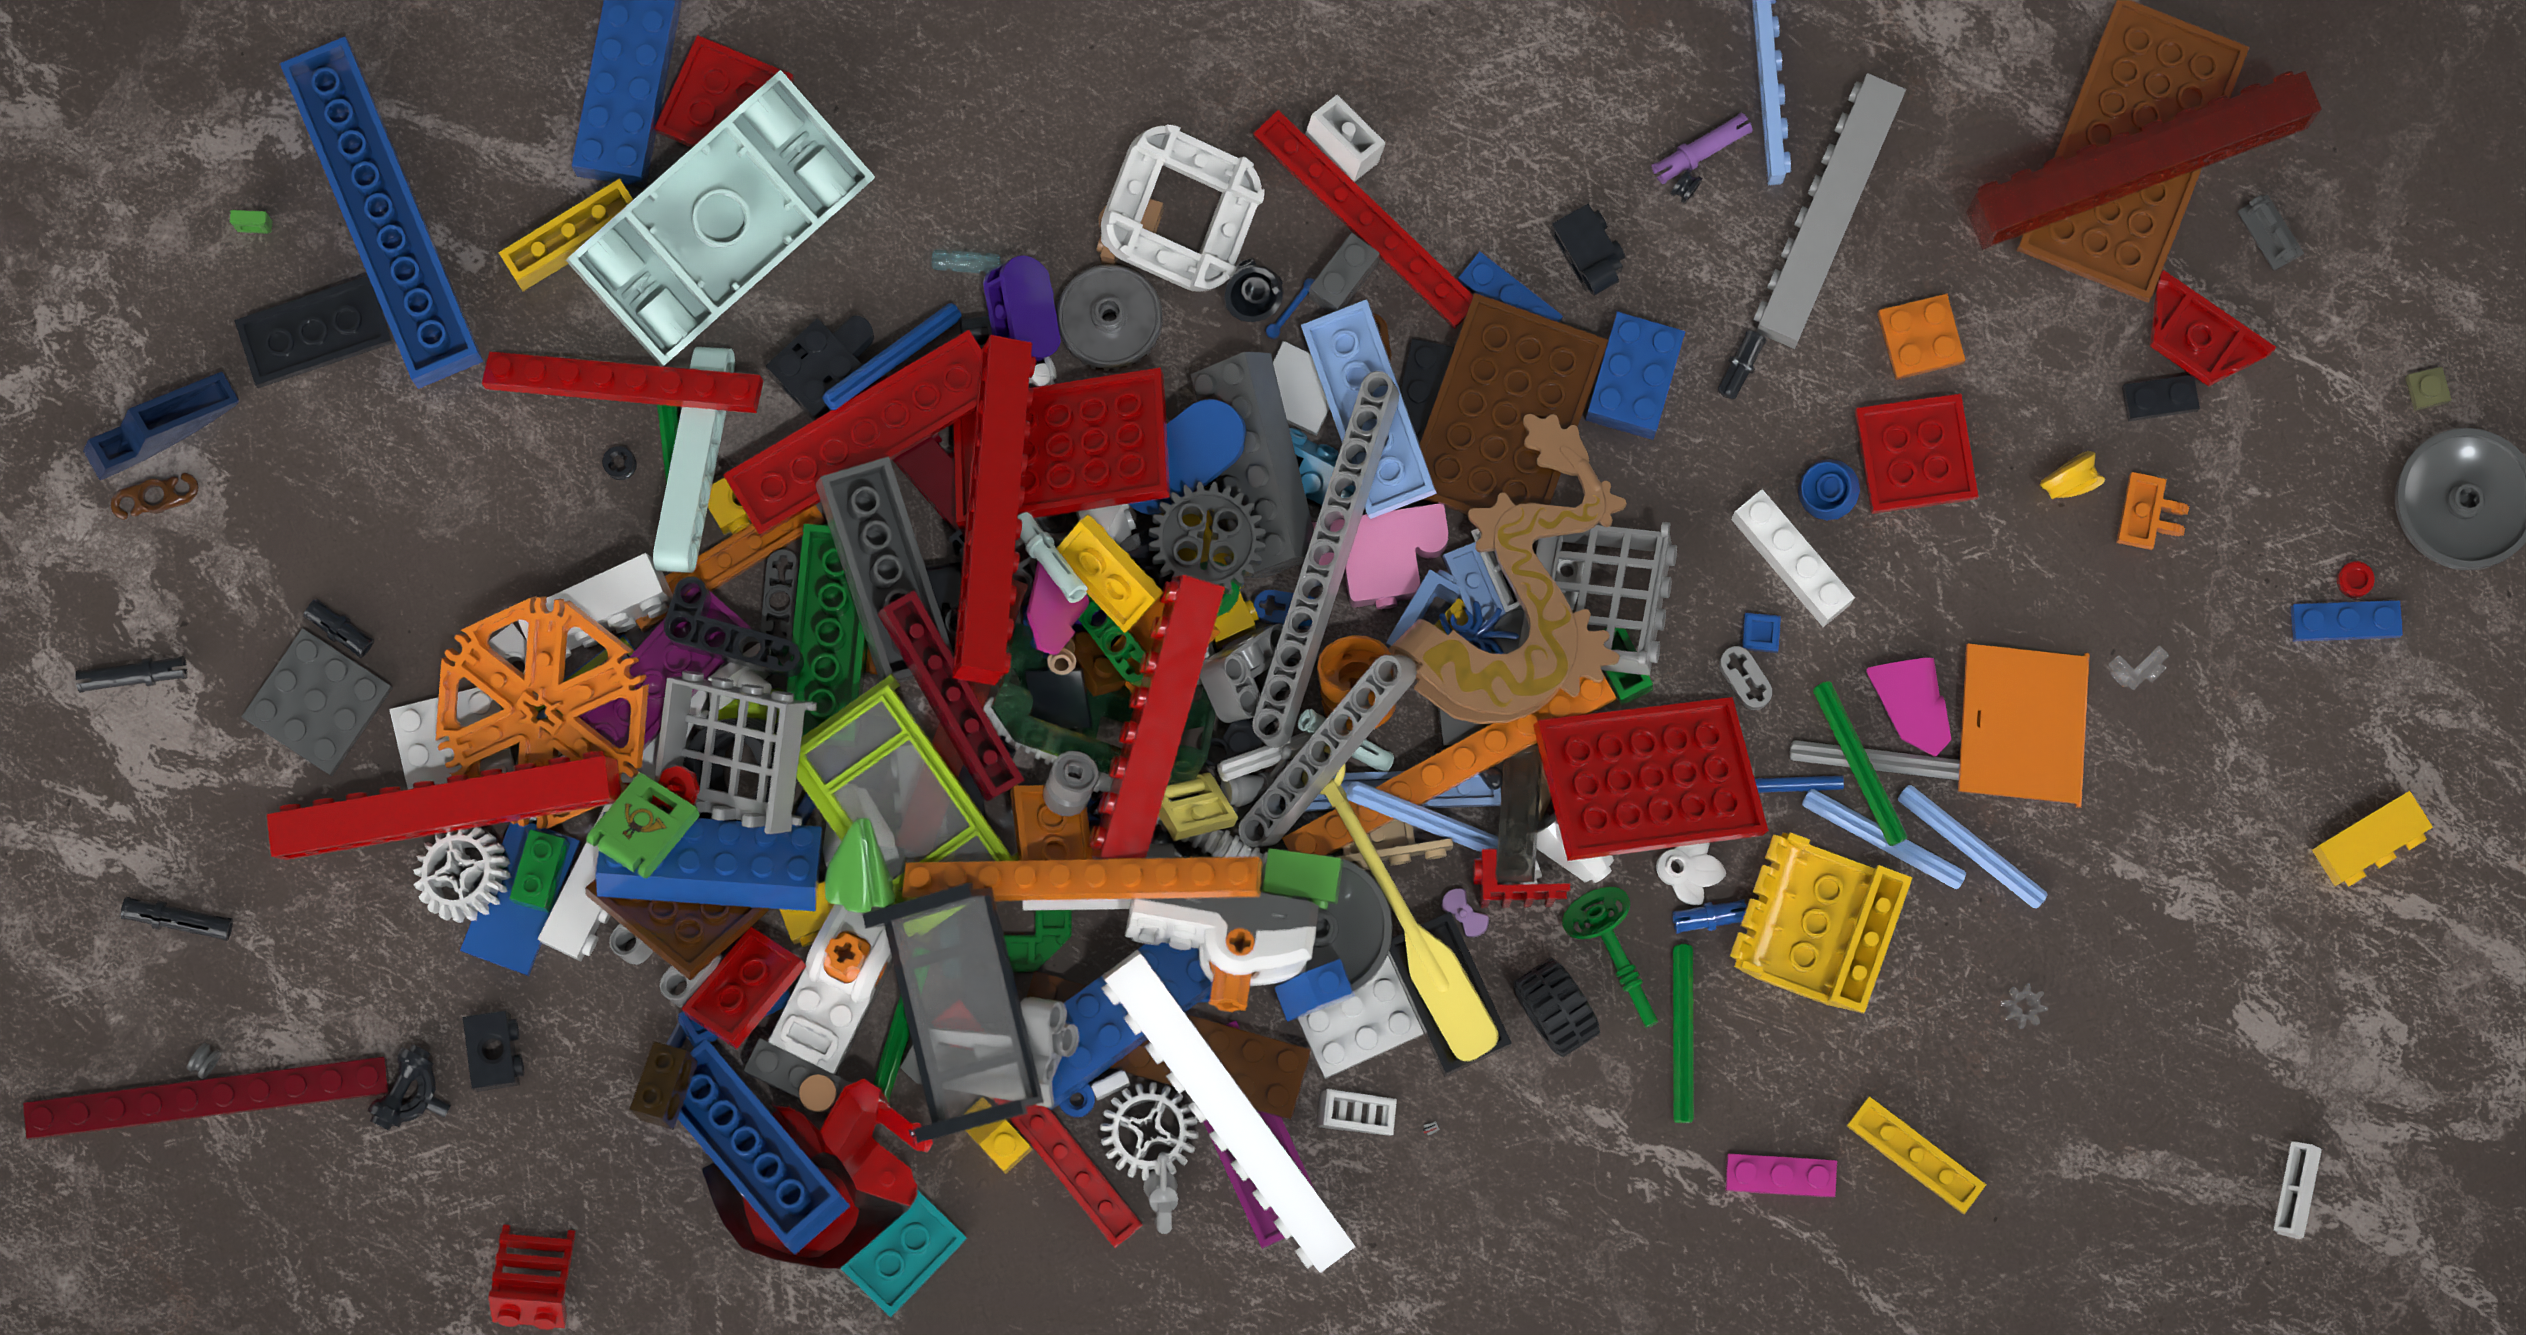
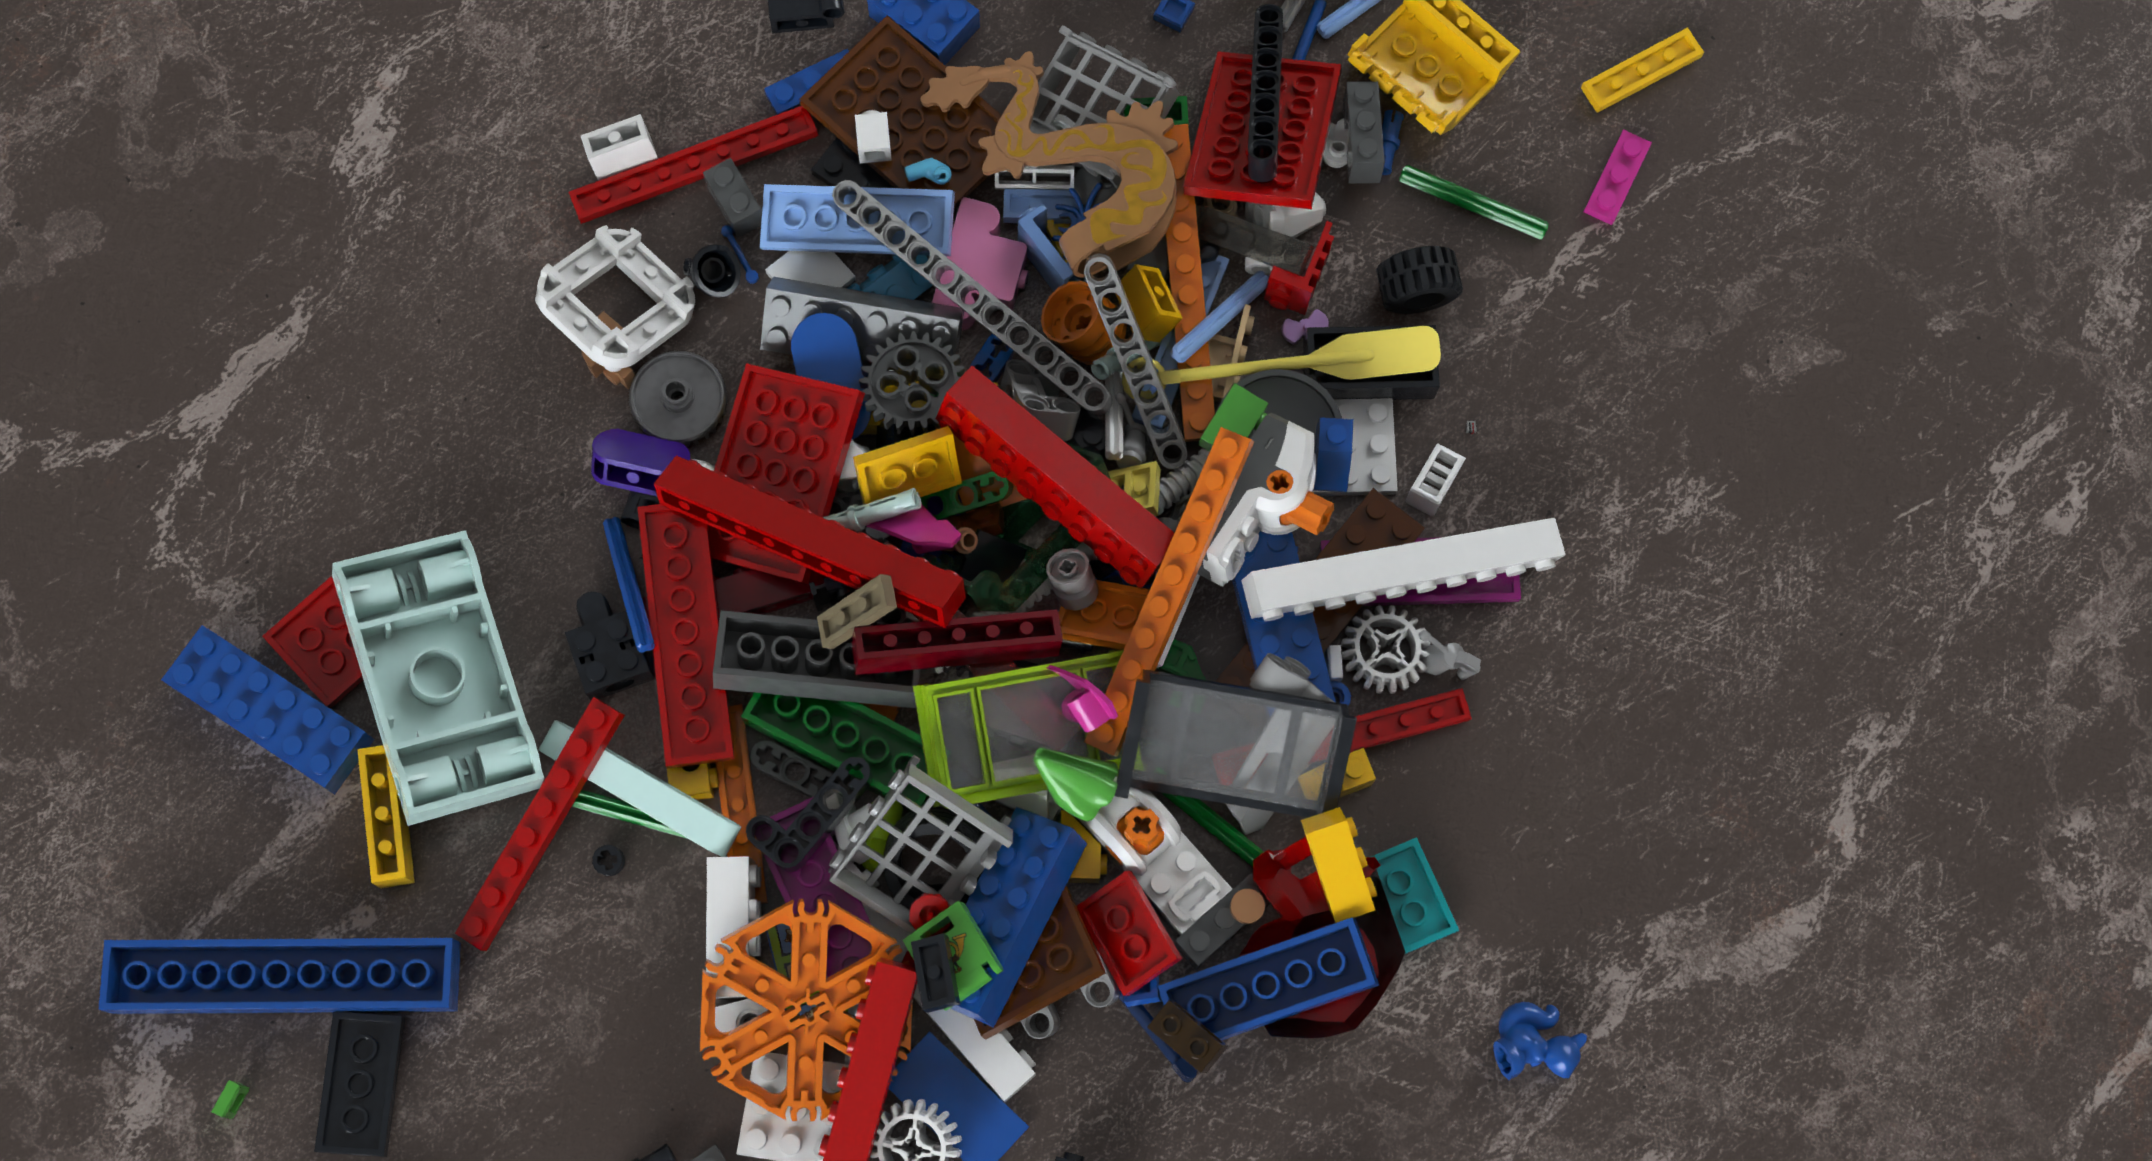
camera: 70 degrees left, 5 degrees down
(539, 871) = (944, 1074): green brick -> none
(615, 815) = (935, 973): none -> black plate
(888, 1162) = (1339, 864): none -> yellow brick
(933, 586) = (857, 610): none -> dark tan plate
(935, 842) = (1086, 703): none -> dark pink panel
(964, 261) = (572, 496): clear light blue axle -> none
(1405, 738) = (1150, 302): none -> yellow brick
(1454, 457) = (930, 169): none -> medium azure arm
(1461, 384) = (873, 136): none -> white brick
(1602, 926) = (1363, 224): green dish -> none
(1678, 772) = (1265, 93): none -> black beam
(1699, 883) = (1364, 126): none -> dark grey arch
(1739, 683) = (1206, 37): light grey beam -> none

